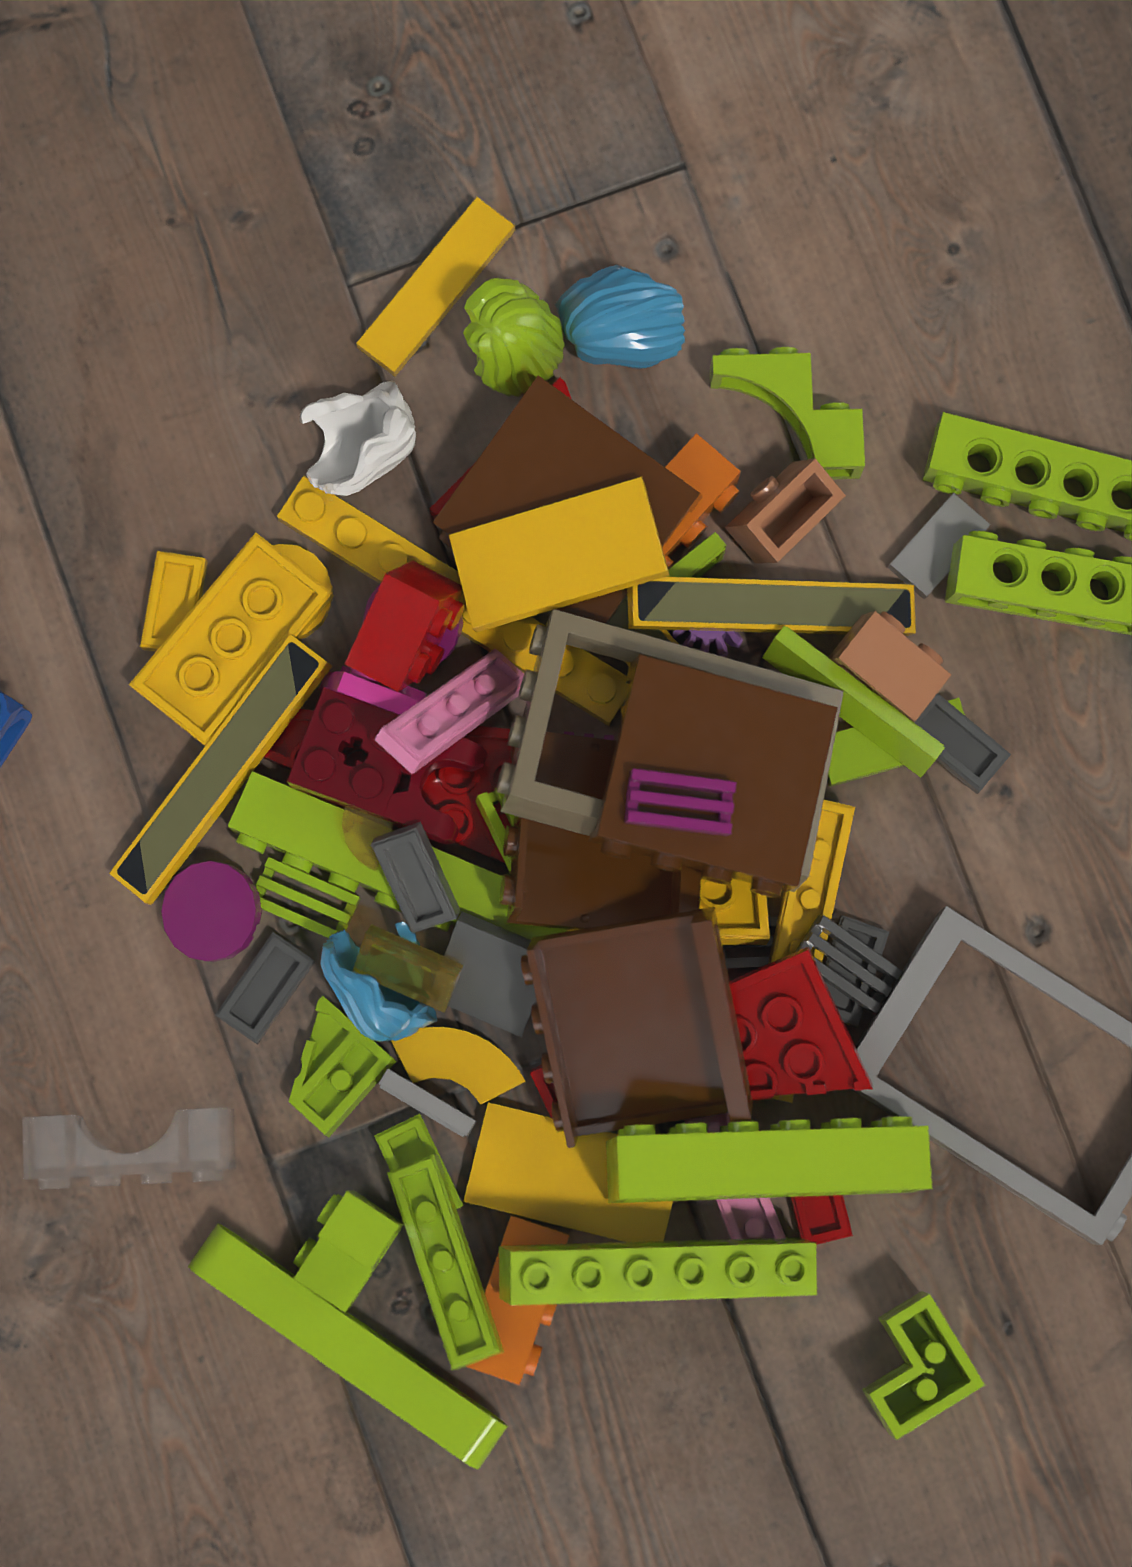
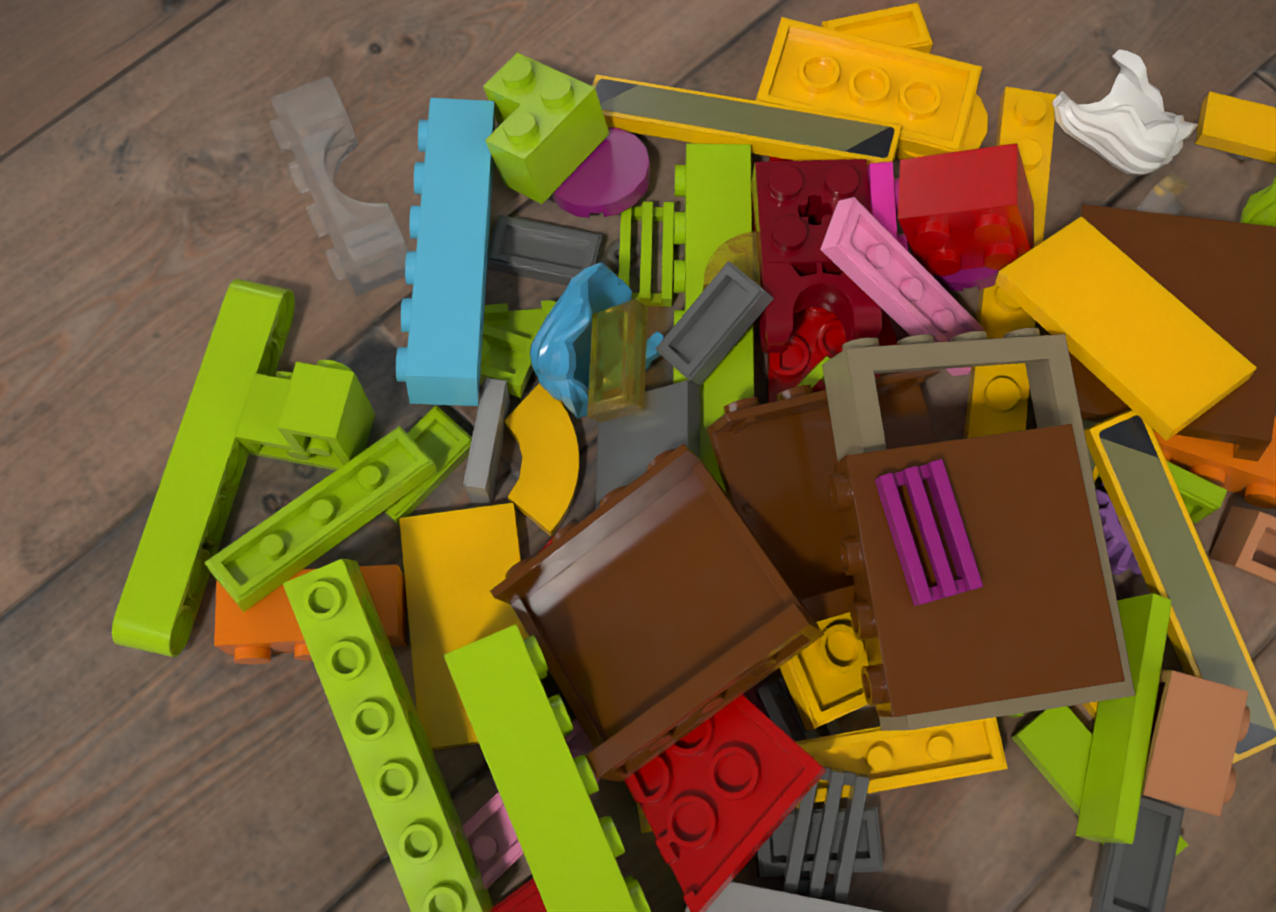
camera: 70 degrees right, 10 degrees down
(158, 936) = (544, 125): none -> lime brick
(243, 1068) = (450, 255): none -> medium azure brick
(450, 450) = (1164, 196): none -> clear plate

